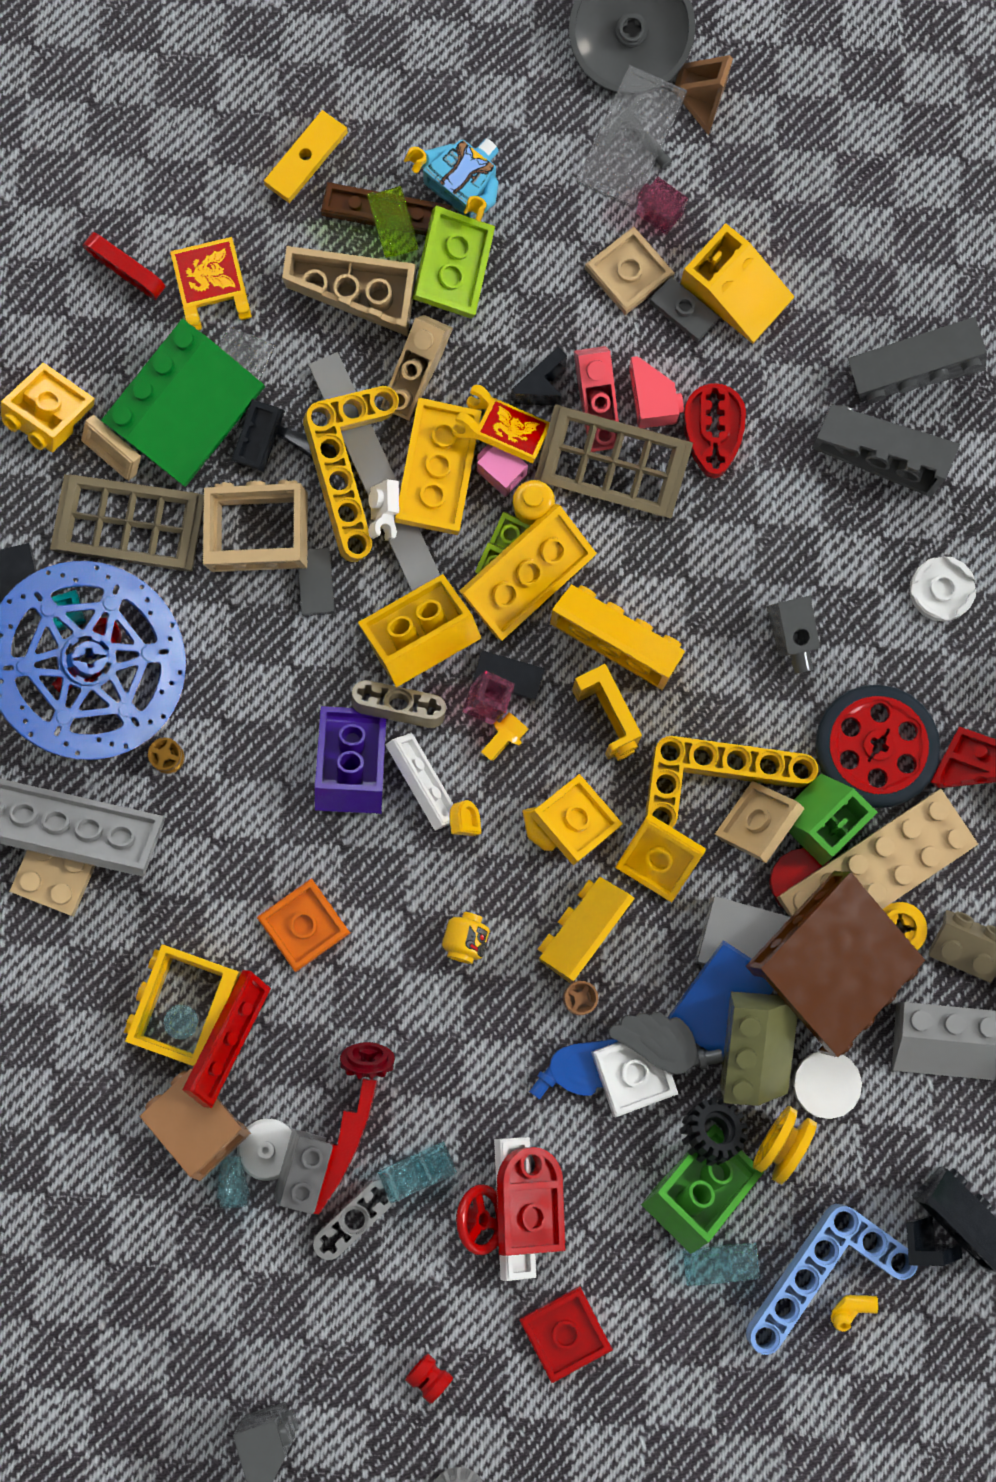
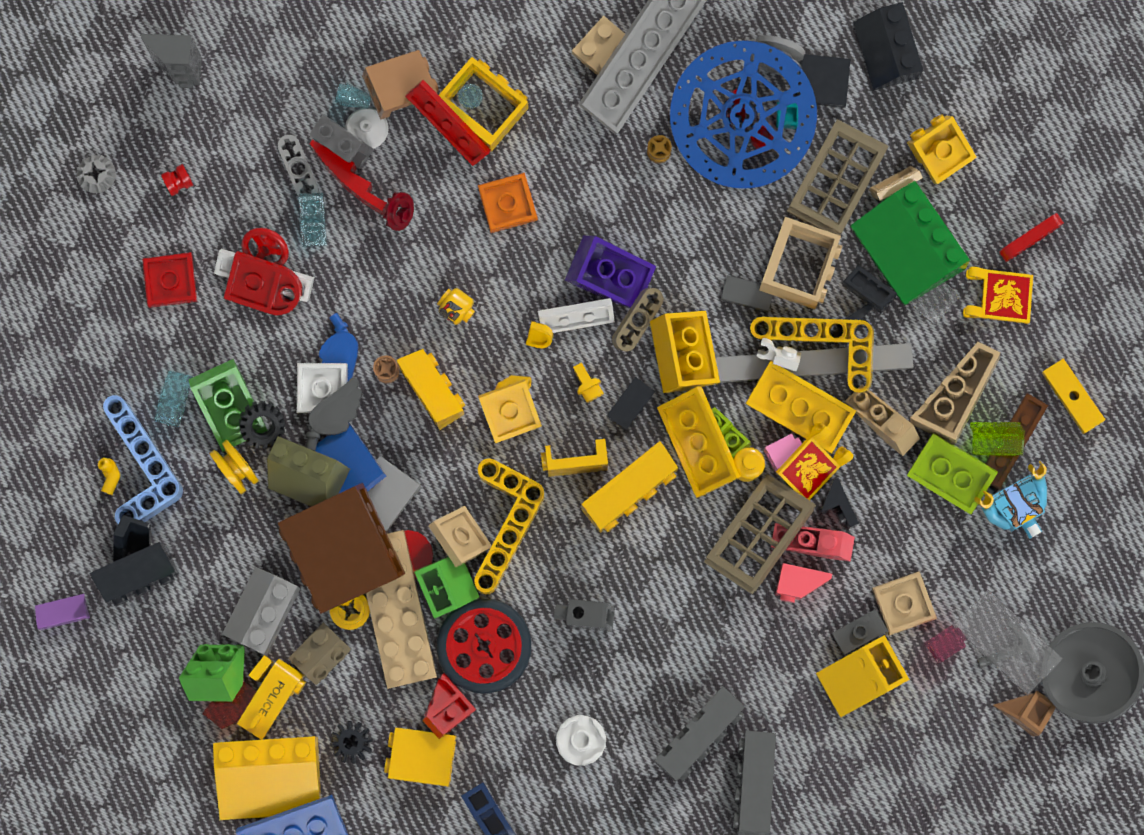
camera: 115 degrees right, 0 degrees up
(488, 697) = (617, 381): clear pink brick -> none
(660, 858) = (461, 458): yellow tile -> none
(731, 423) = (770, 608): red piece -> none
(827, 1085) = (261, 516): white tile -> none

